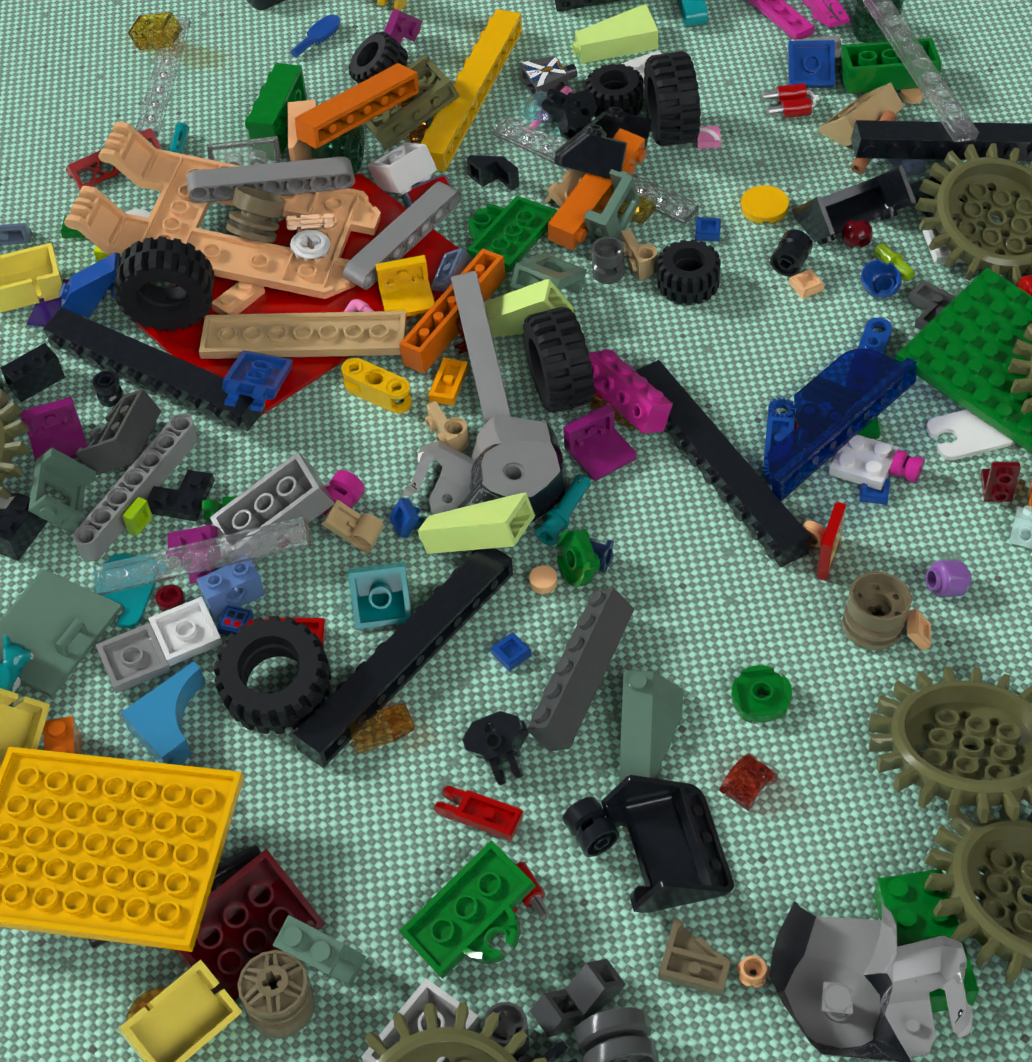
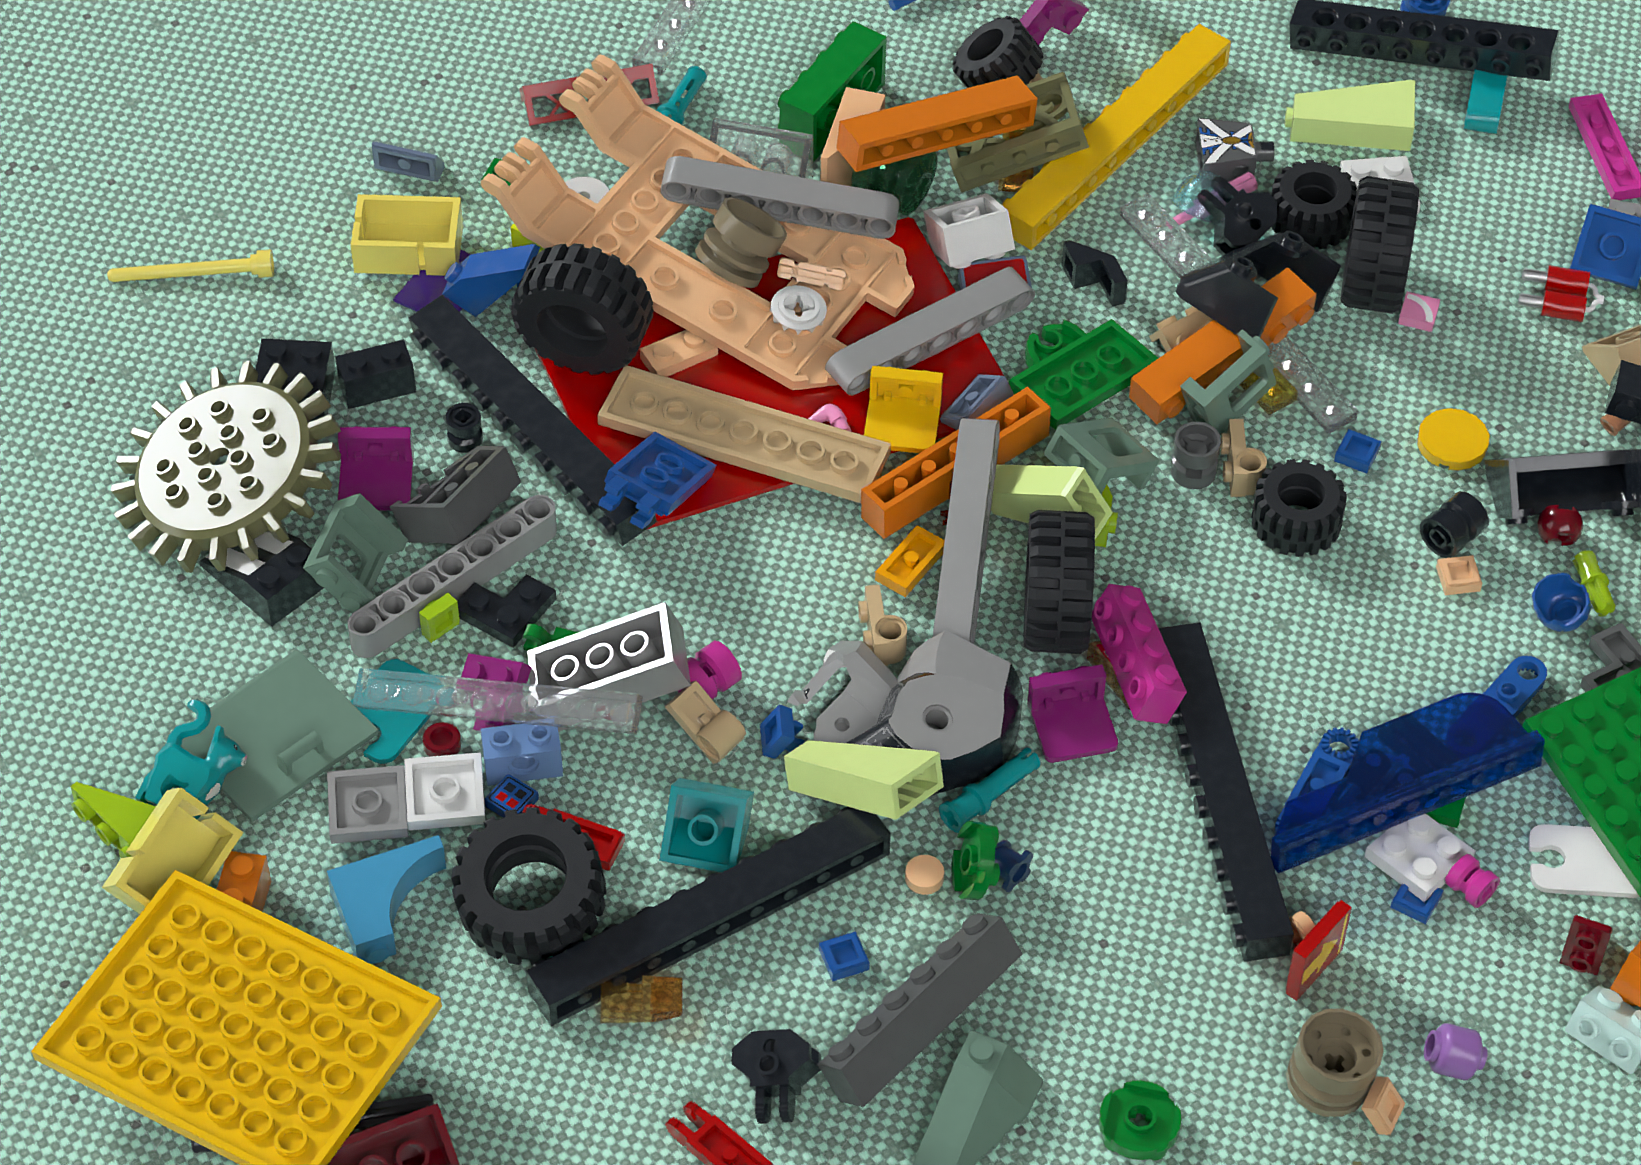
camera: 15 degrees right, 0 degrees up
(376, 385) = (813, 536): yellow piece -> none

